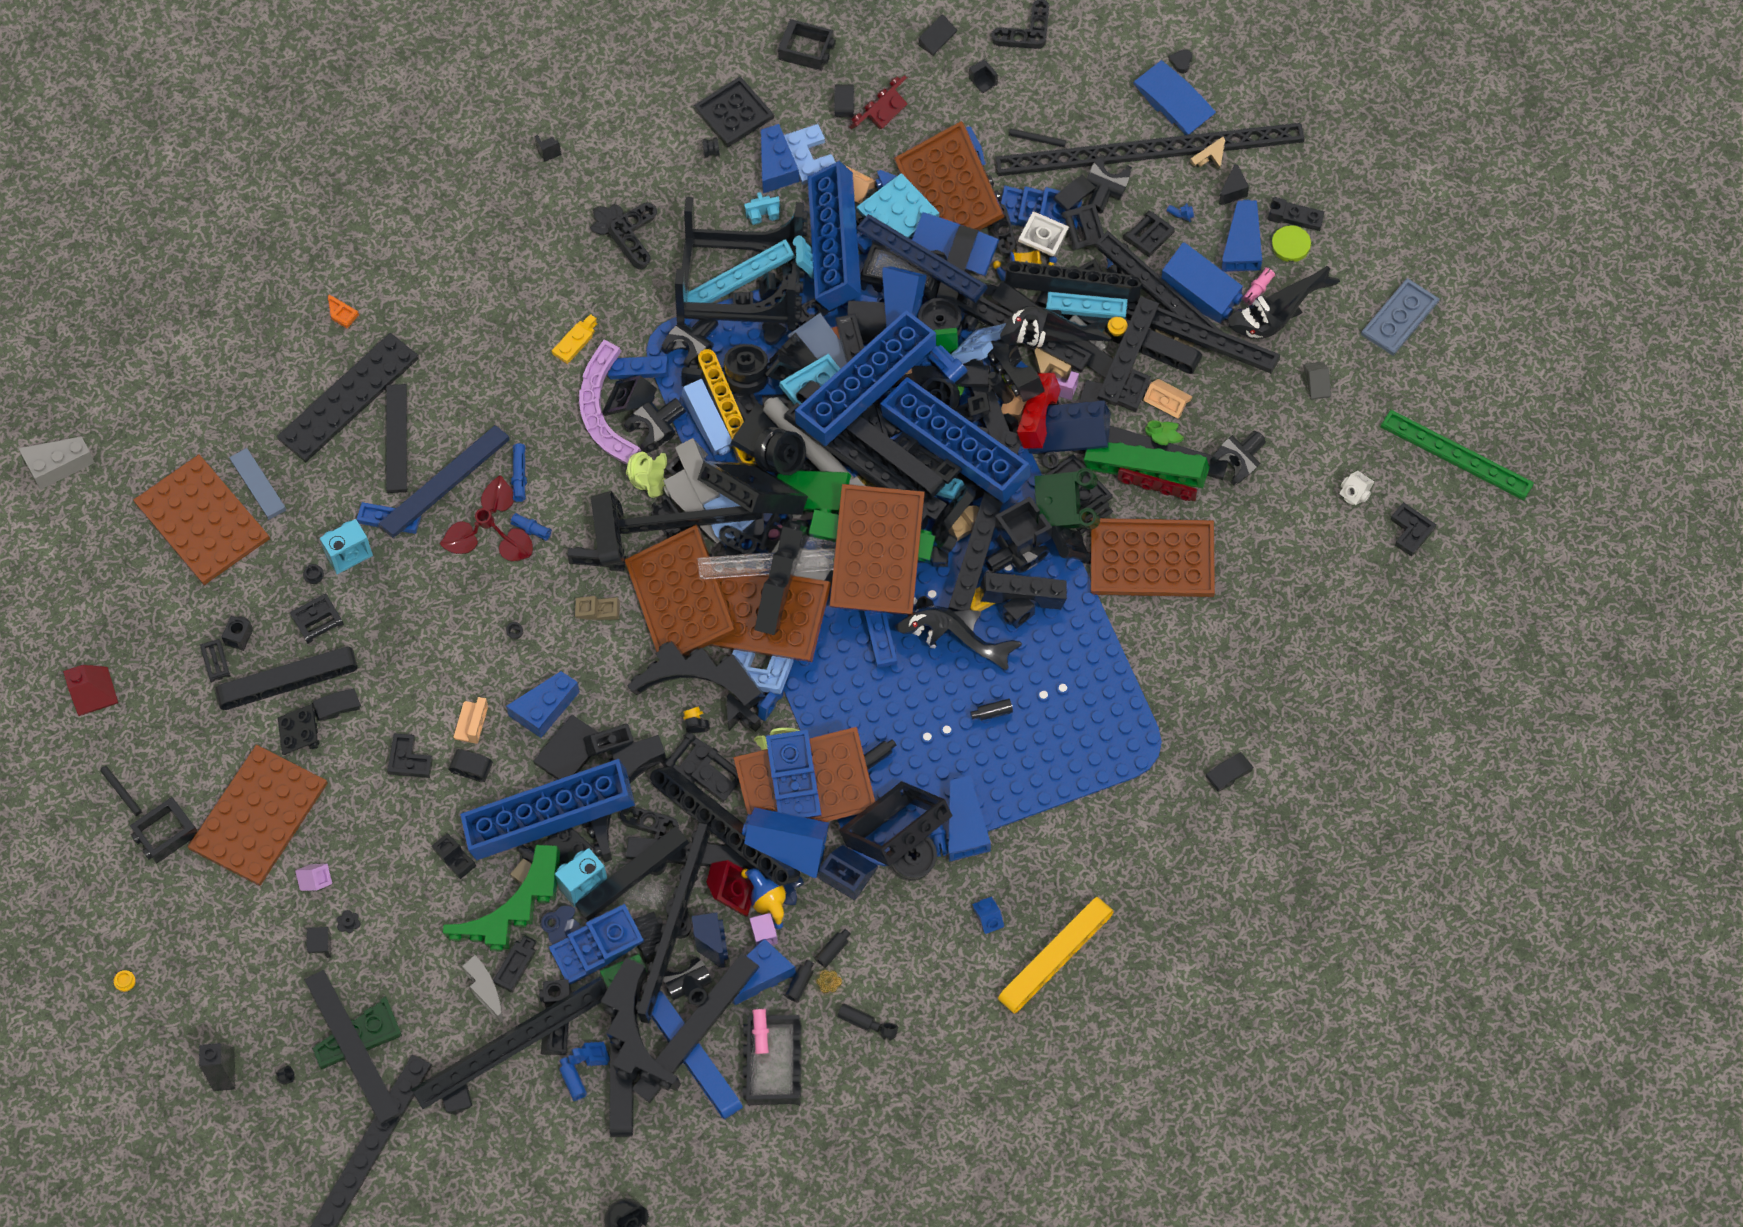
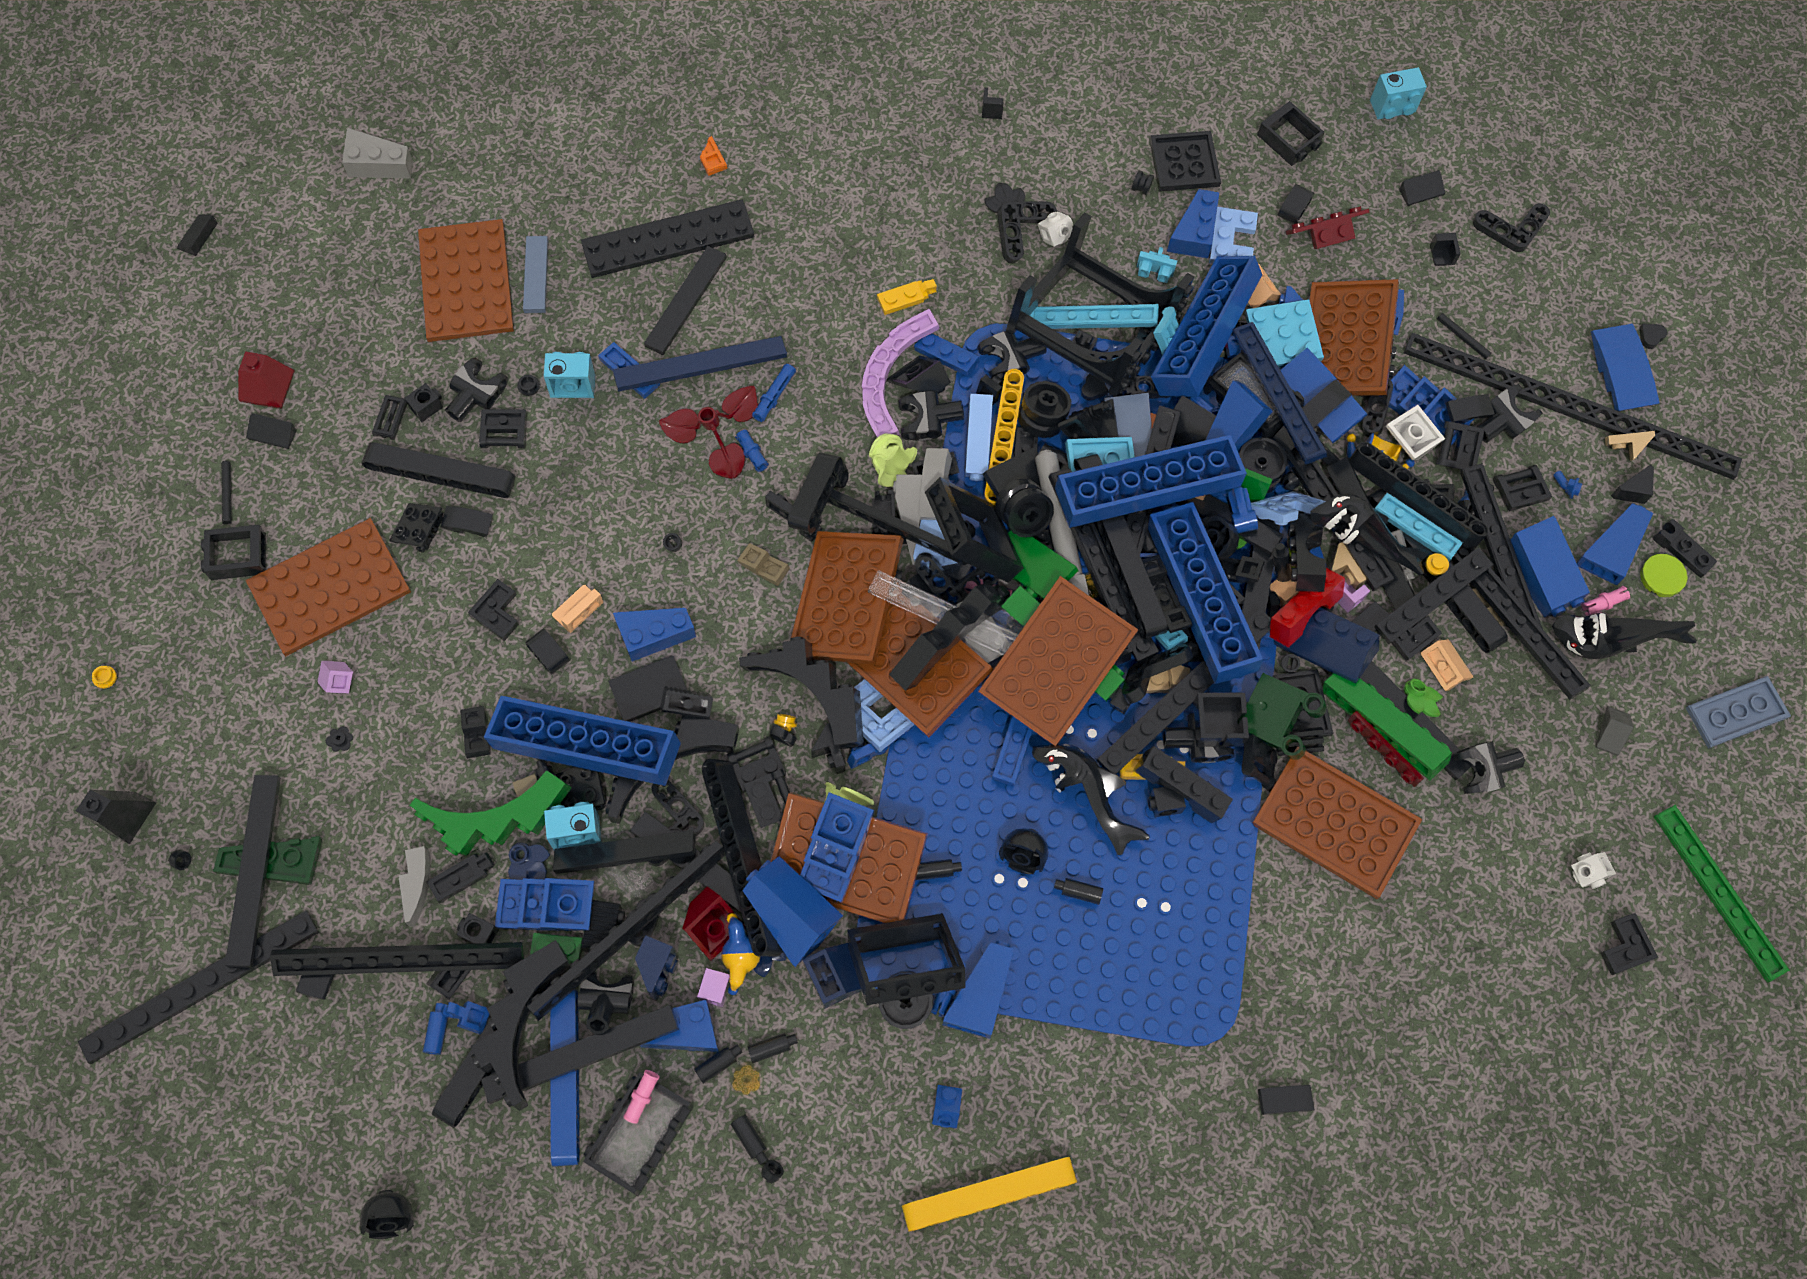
camera: 25 degrees right, 5 degrees up
(123, 723) = (270, 431): none -> black slope
(271, 602) = (473, 391): none -> black connector
(319, 940) = (296, 744): black panel -> none
(664, 221) = (1056, 228): none -> white brick
(768, 285) = (1116, 340): black tile -> none
(924, 601) = (1077, 739): black hinge -> none
(935, 704) = (1024, 851): none -> black cylinder

